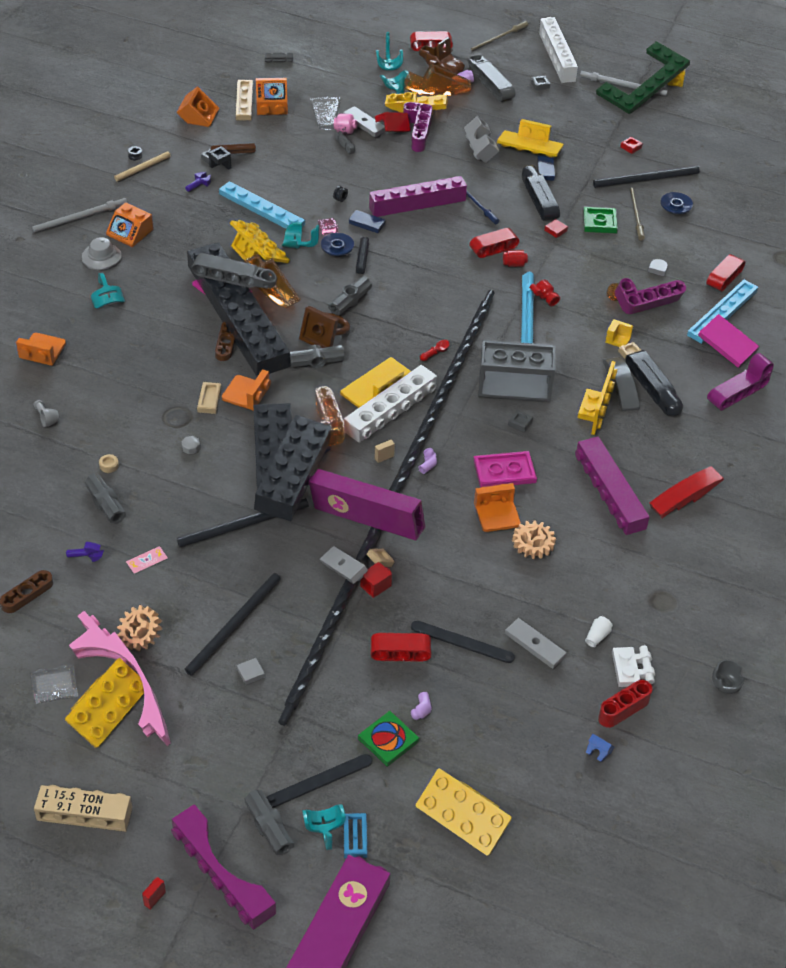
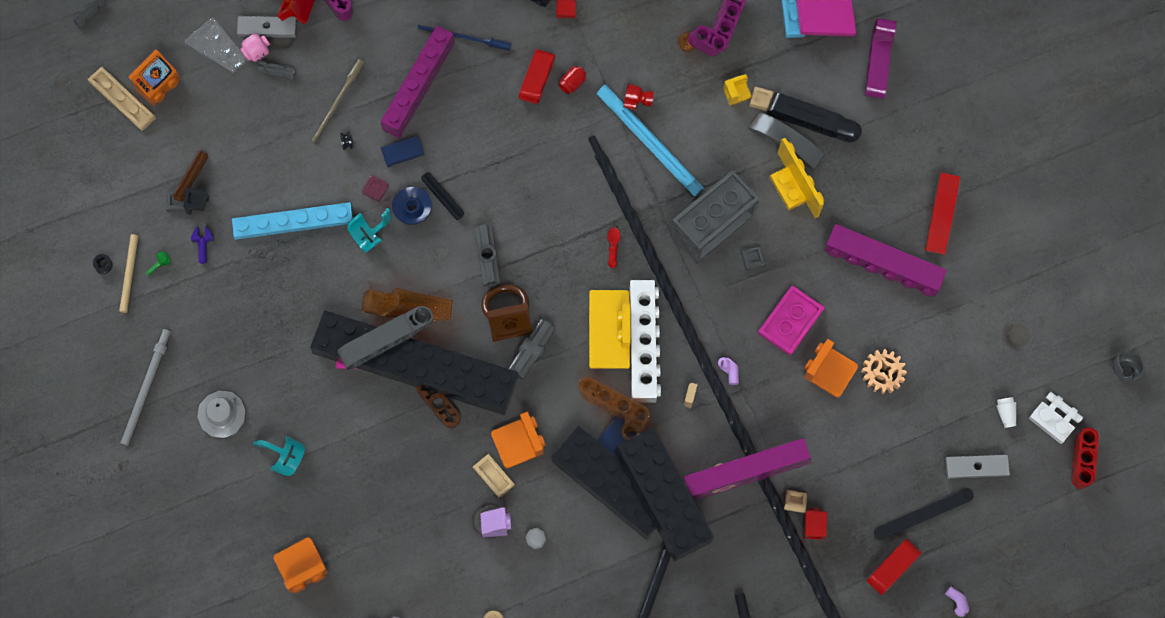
camera: 45 degrees left, 25 degrees up
(130, 224) = (208, 358): orange slope -> none
(167, 173) = (163, 260): none -> green hand
(176, 413) = (495, 523): none -> lavender slope
(197, 108) = (97, 154): orange slope -> none
(253, 241) = (343, 273): yellow bracket -> none
(344, 564) = (773, 539): light grey tile -> none
(385, 172) = (350, 78): none -> dark tan piece
(597, 743) = (1102, 510): blue tile -> none

